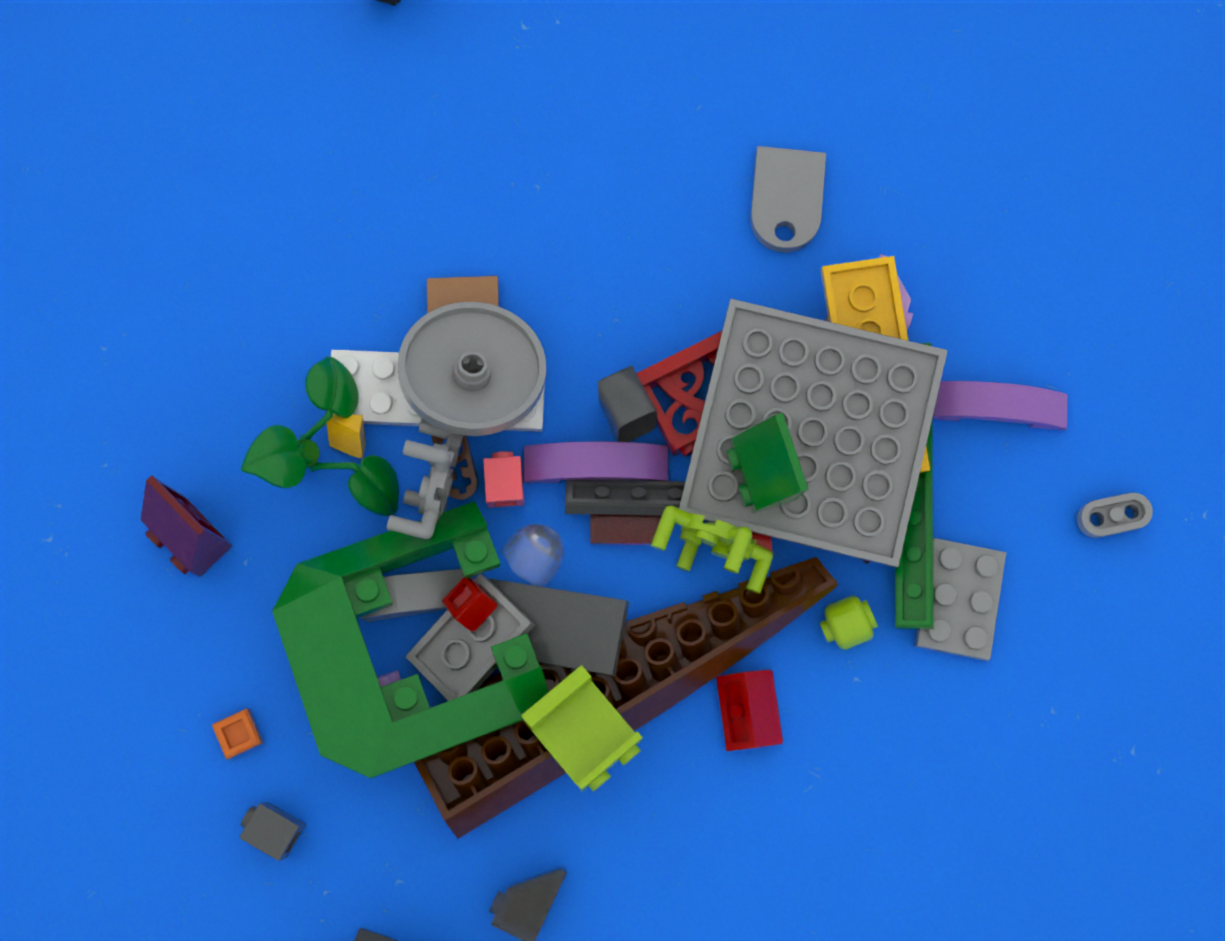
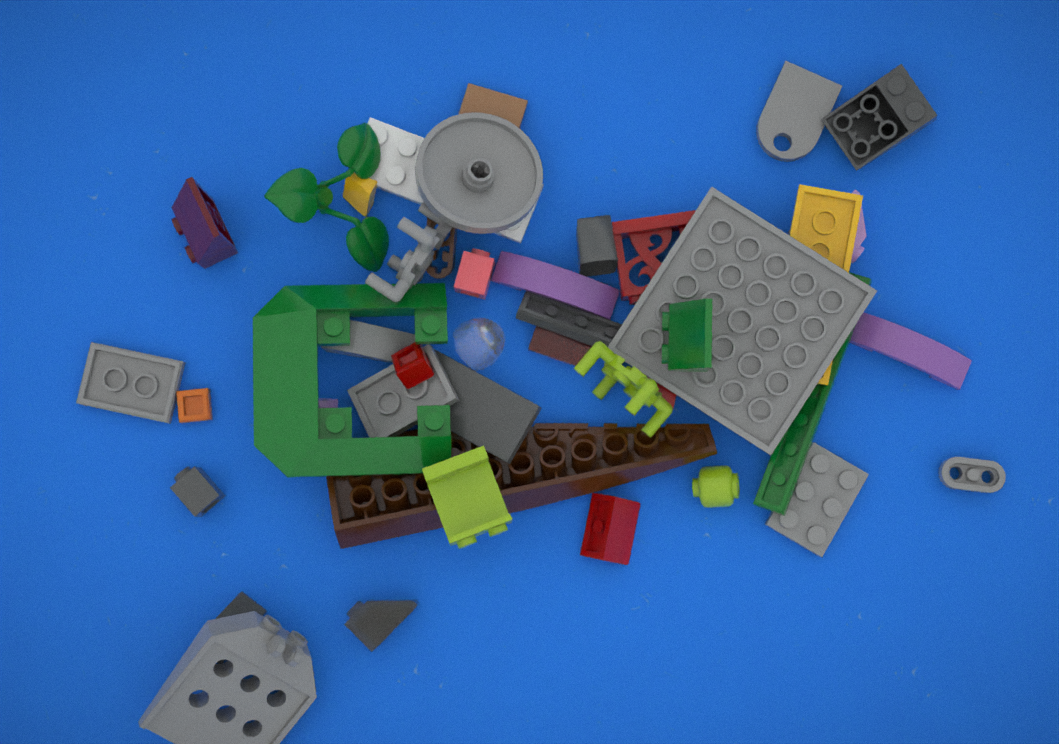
camera: 25 degrees right, 5 degrees up
(156, 733) = (130, 382): none -> light grey tile
(878, 171) = (879, 117): none -> dark grey slope

